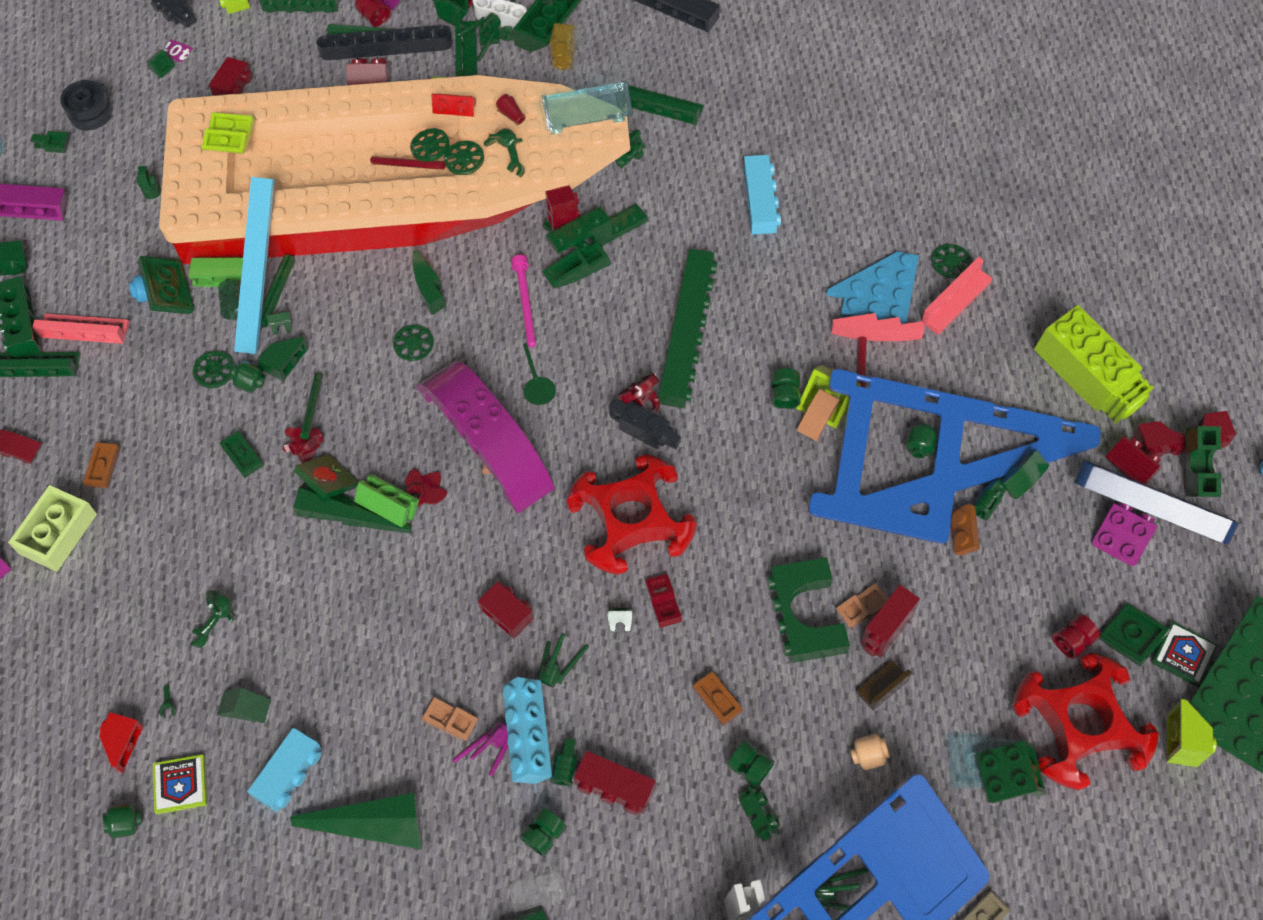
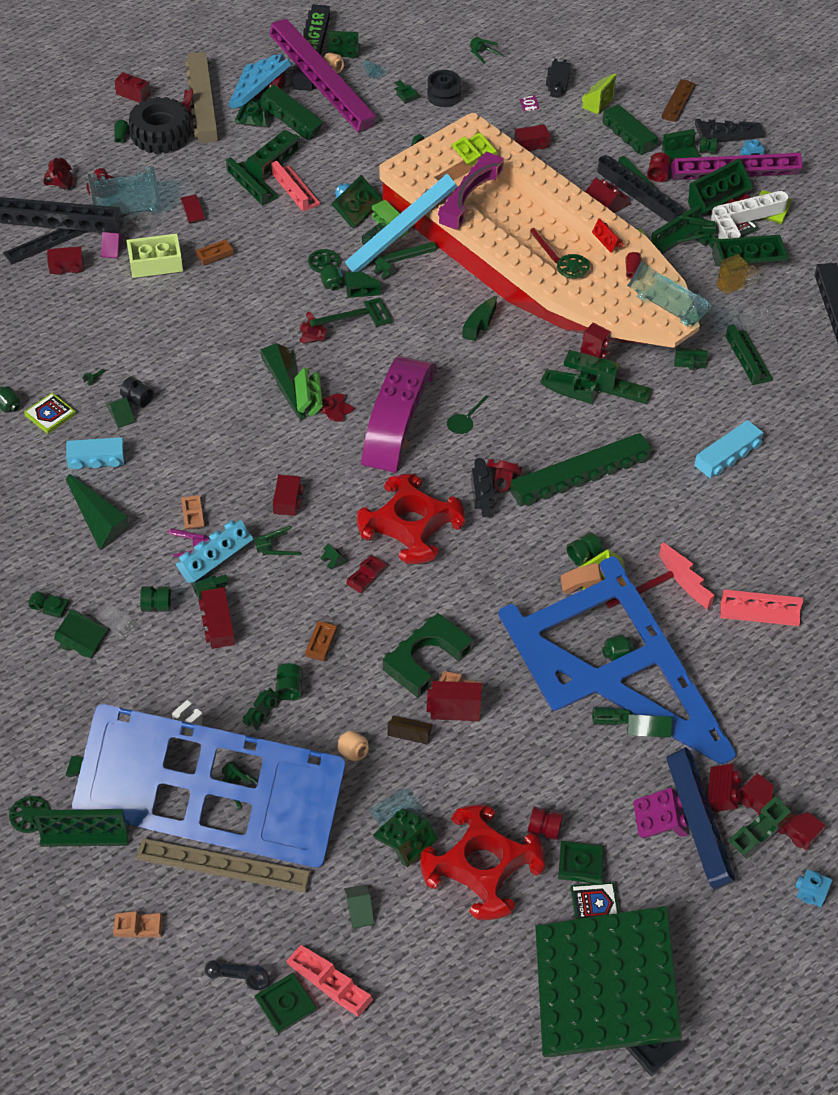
camera: 50 degrees right, 10 degrees down
(54, 37) = (477, 45): none -> dark green plant
(119, 738) = (52, 368): red slope -> none
(160, 63) = (509, 100): dark green tile -> none
(221, 608) = (169, 358): dark green piece -> none
(236, 671) = (137, 392): none -> black wheel
(241, 454) = (278, 308): dark green plate -> none
(299, 206) = (487, 168): none -> magenta arch
(326, 476) = (297, 353): dark green tile -> none
(327, 373) = (381, 321): none -> dark green tile
(413, 342) = (433, 340): dark green wheel -> none
(429, 144) = (564, 243): dark green wheel -> none
(508, 139) = (605, 275): dark green piece -> none
(520, 265) = (541, 357): dark pink piece -> none
(879, 288) = (722, 562): dark azure wing -> none
(950, 260) = (792, 590): dark green wheel -> none
(965, 530) = (567, 715): dark orange plate -> none
(1058, 867) = (359, 906): none -> dark green slope
(1094, 365) = (779, 716): lime piece -> none
(1188, 736) = (519, 929): lime slope -> none

